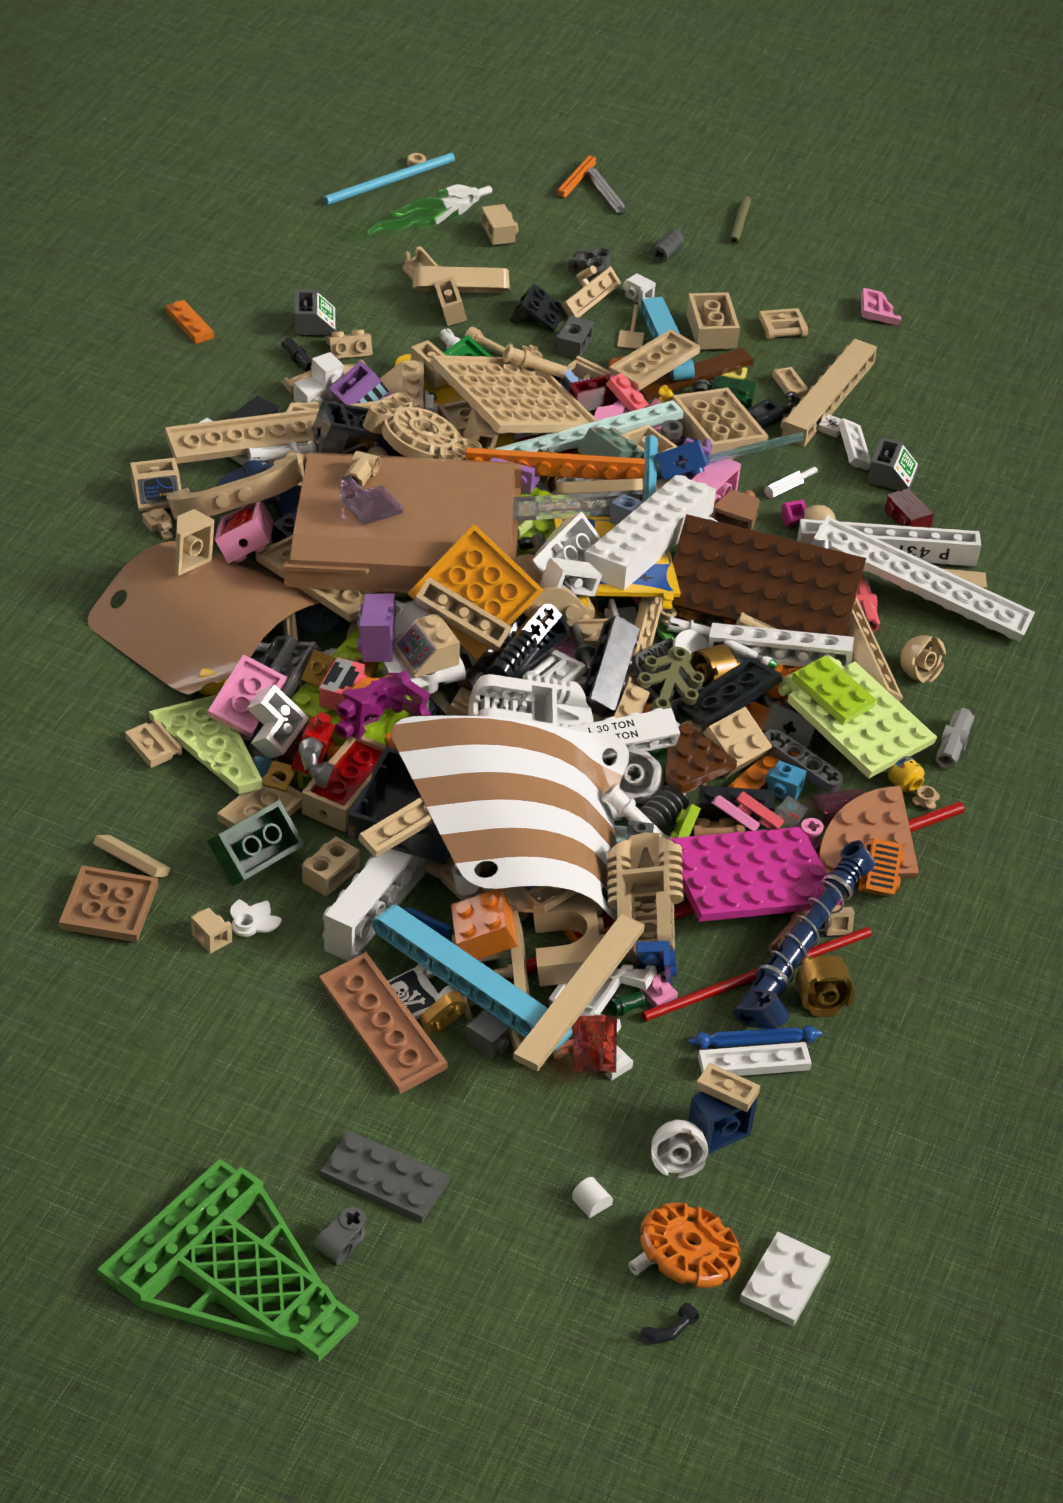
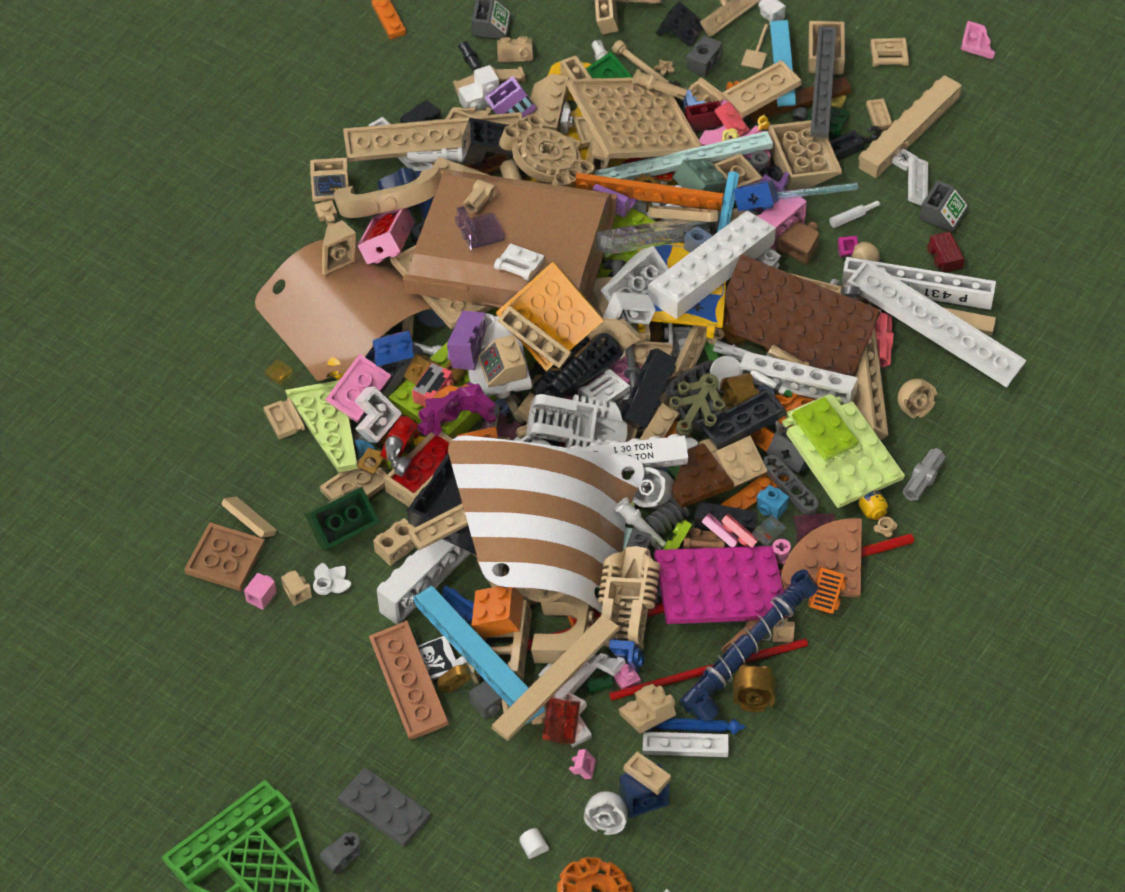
camera: 15 degrees right, 10 degrees up
(135, 693) = (278, 371): none -> clear yellow plate
(165, 938) = (260, 591): none -> bright pink brick
(284, 644) = (393, 348): none -> blue bracket
(429, 532) = (520, 261): none -> white plate
(631, 404) = (726, 133): none -> light yellow plate
(633, 1096) = (584, 764): none -> bright pink tile
(699, 1021) = (649, 708): none -> tan plate
(724, 349) = (823, 82): none -> dark grey plate

